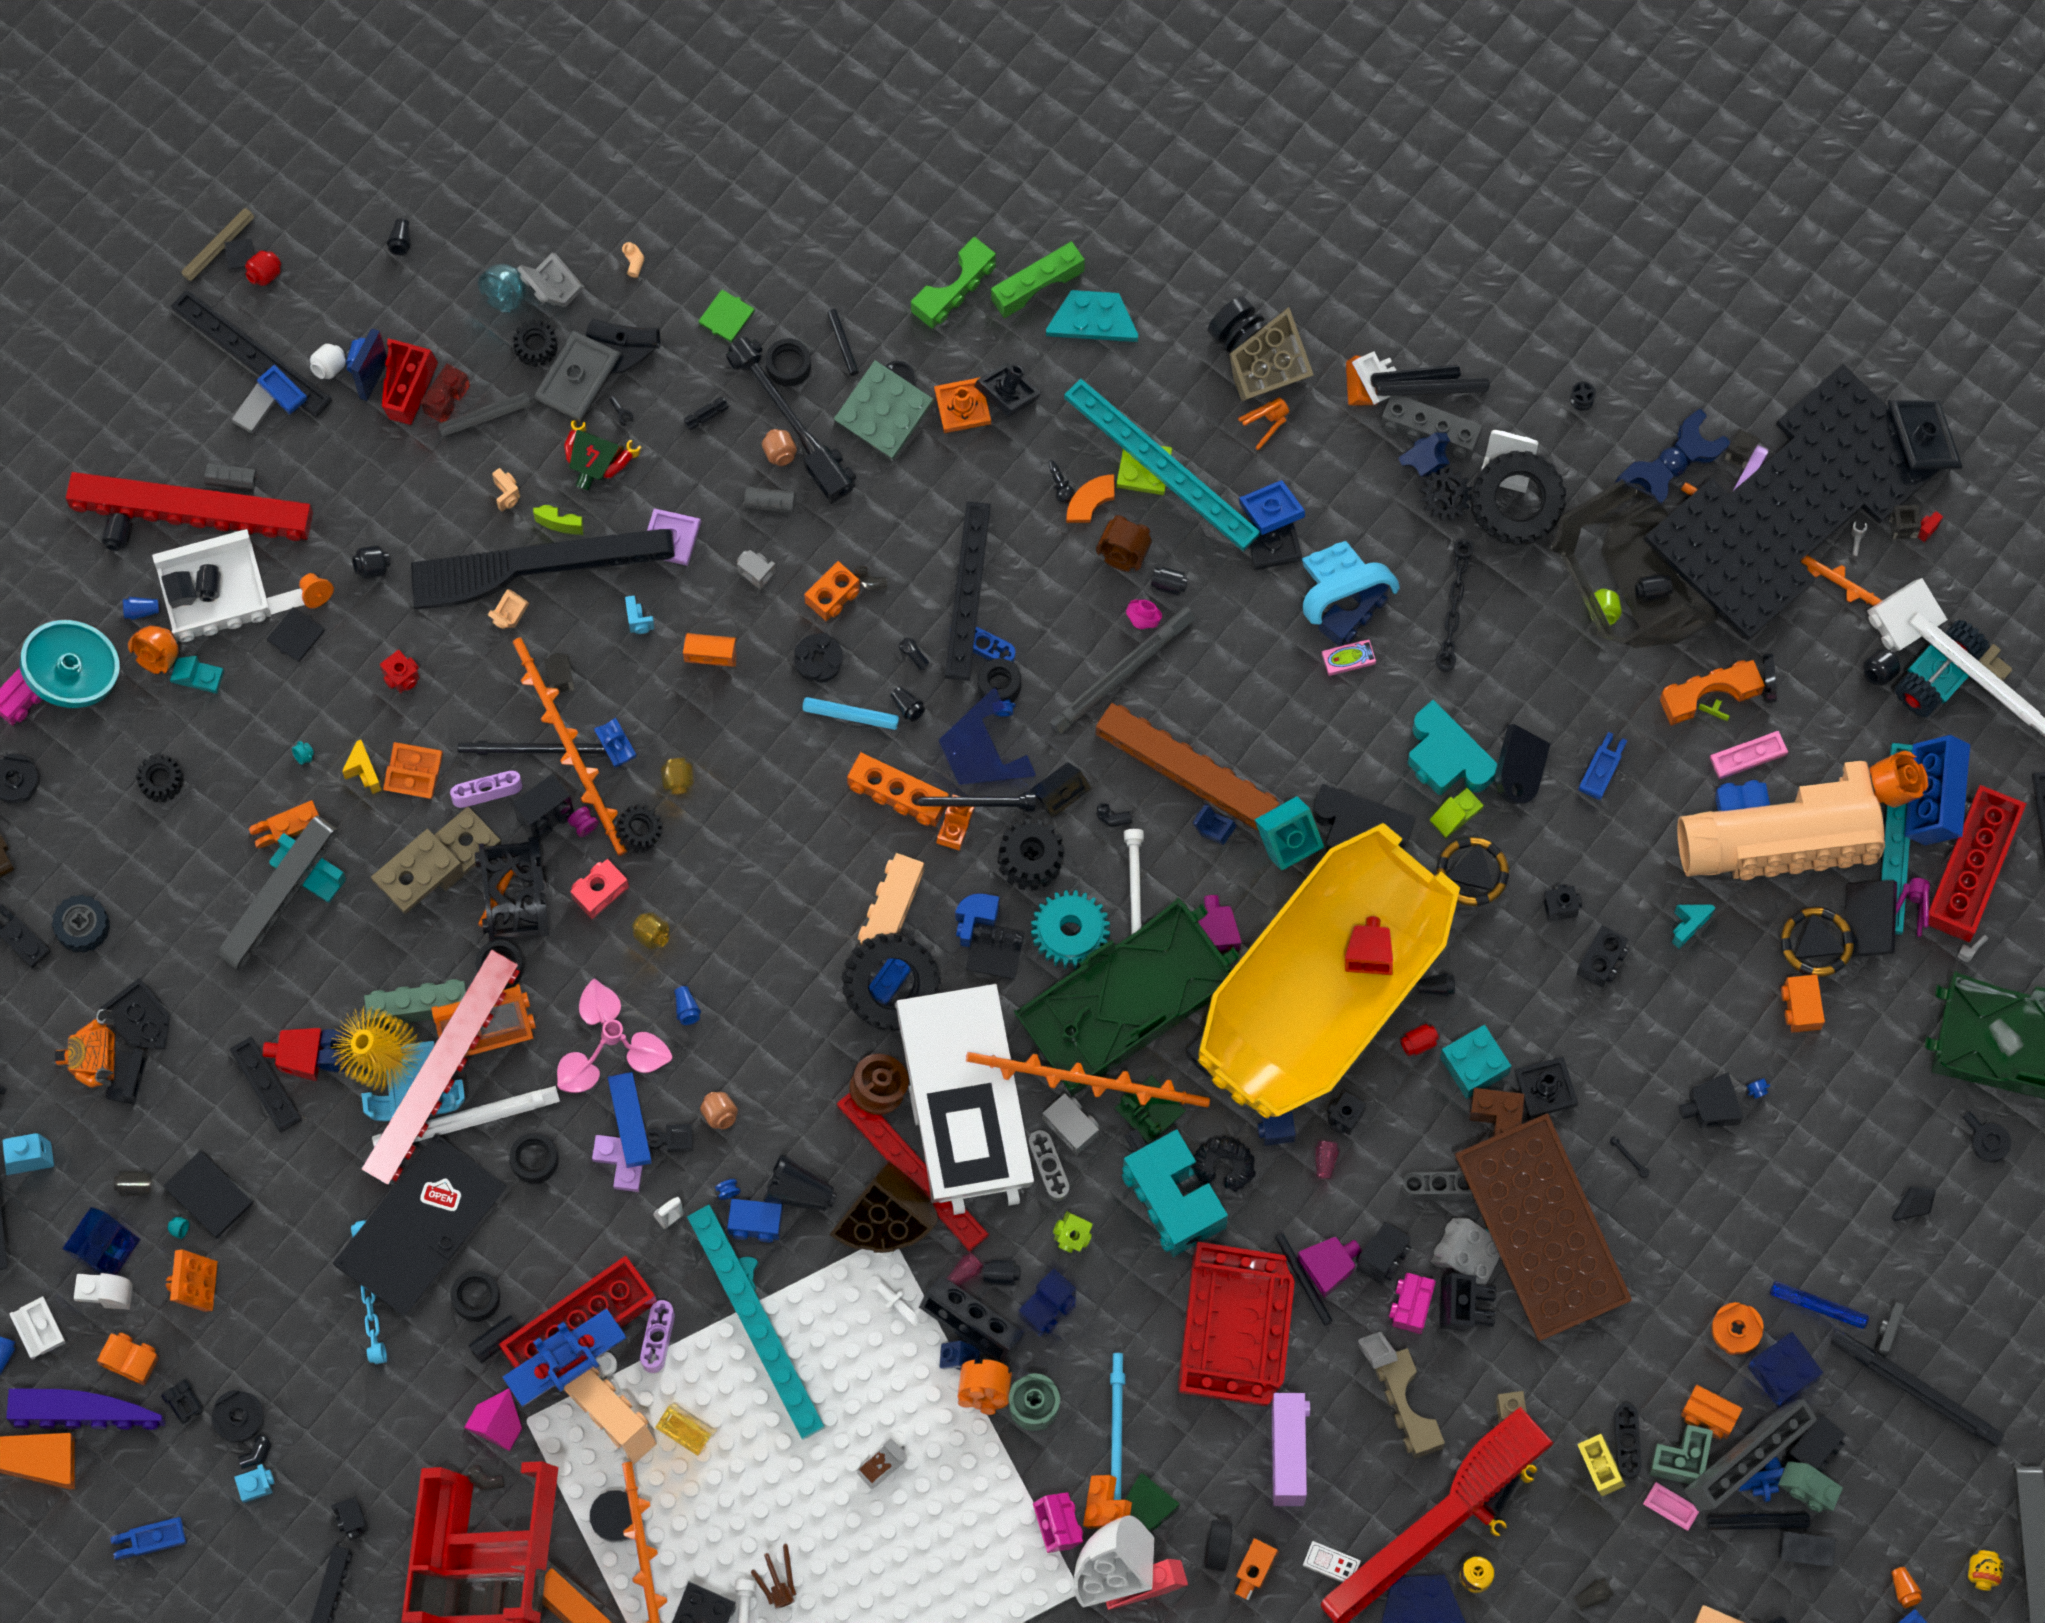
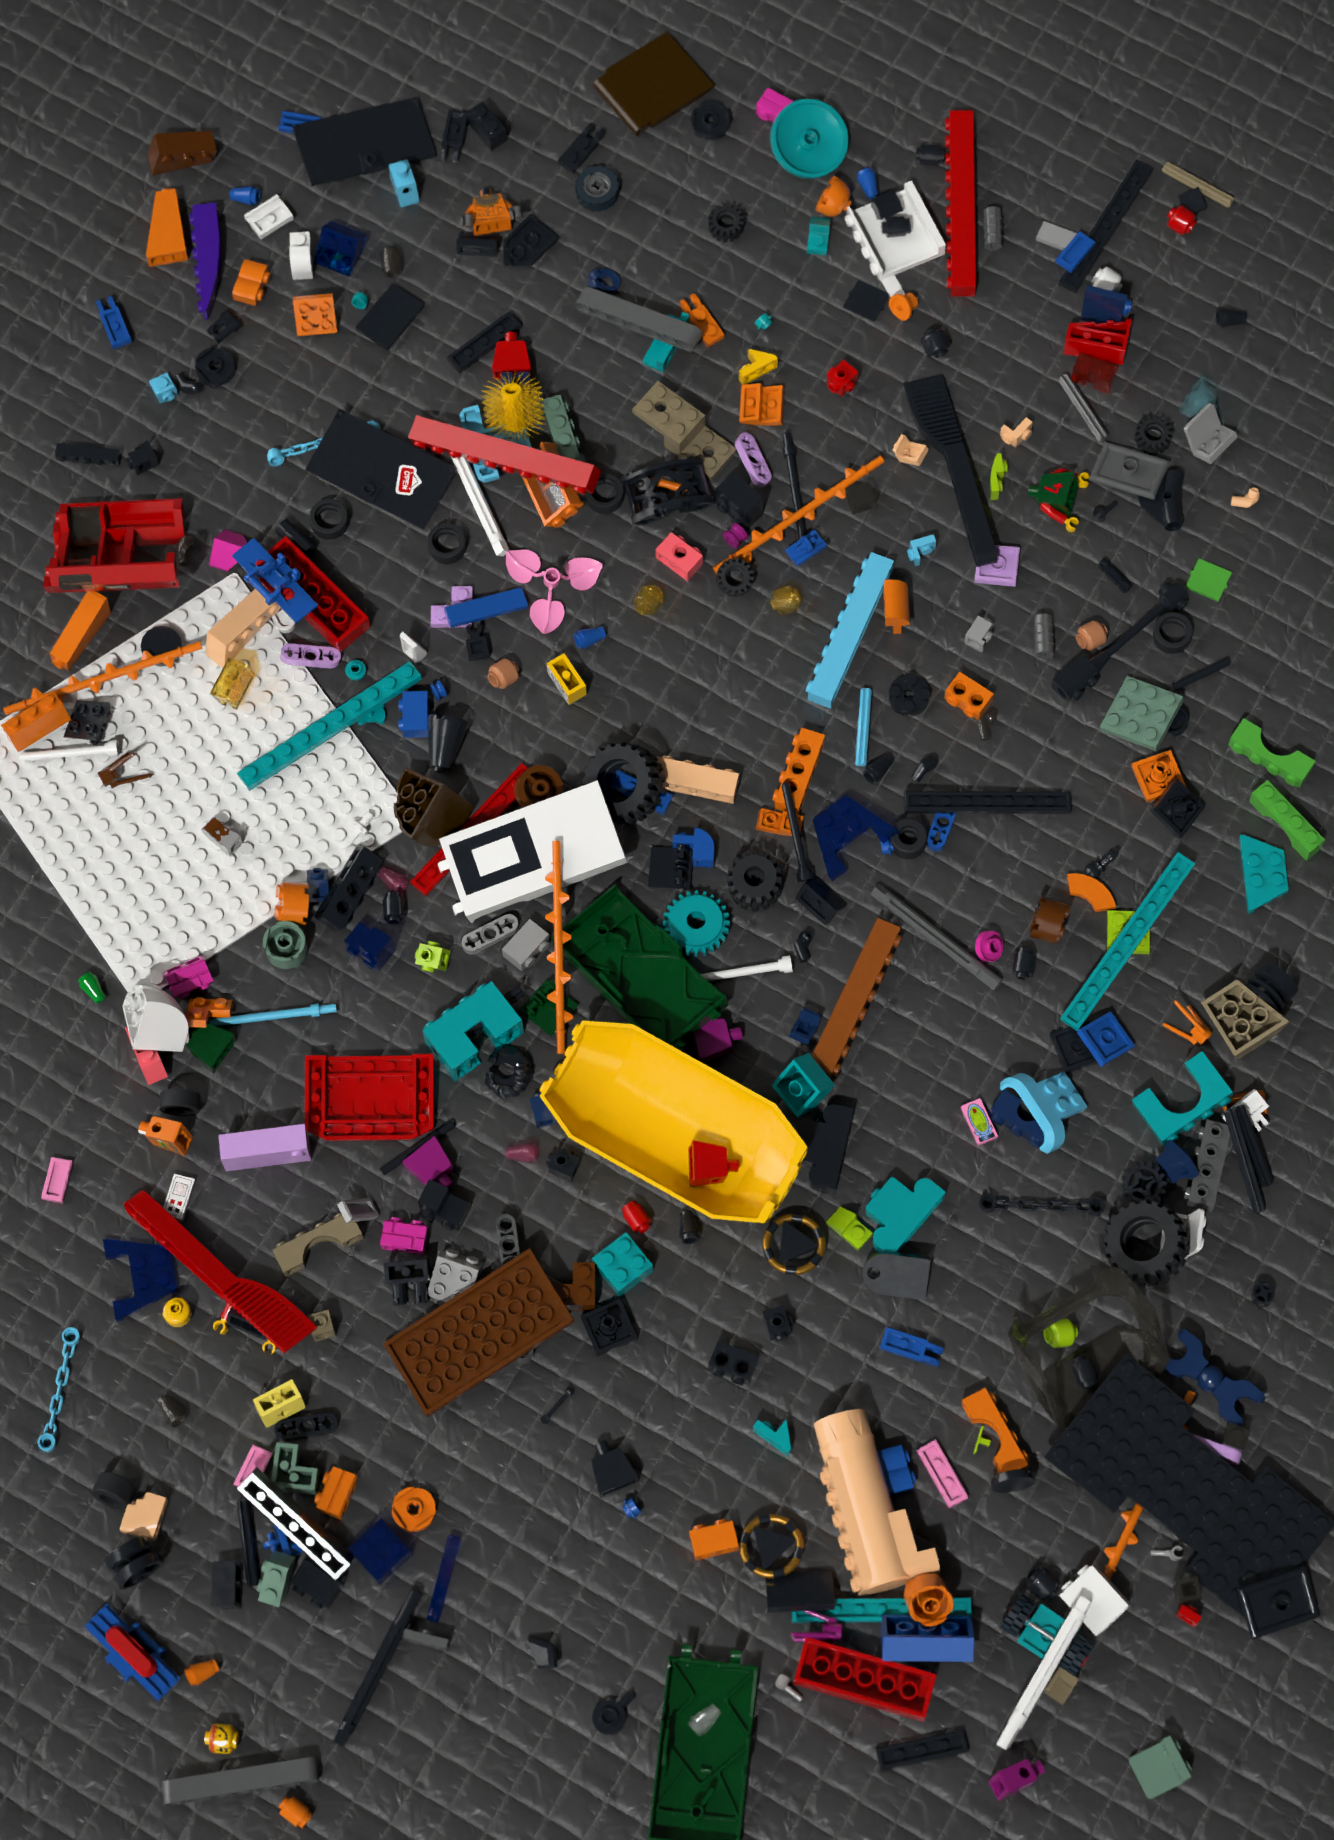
camera: 85 degrees right, 0 degrees up
(214, 942) = (601, 273): none -> dark blue piece
(687, 1292) = (355, 675): none -> teal plate
(727, 709) = (850, 630): none -> medium azure brick
(740, 1035) = (566, 679): none -> yellow brick
(1353, 405) = (1167, 1124): none -> teal arch

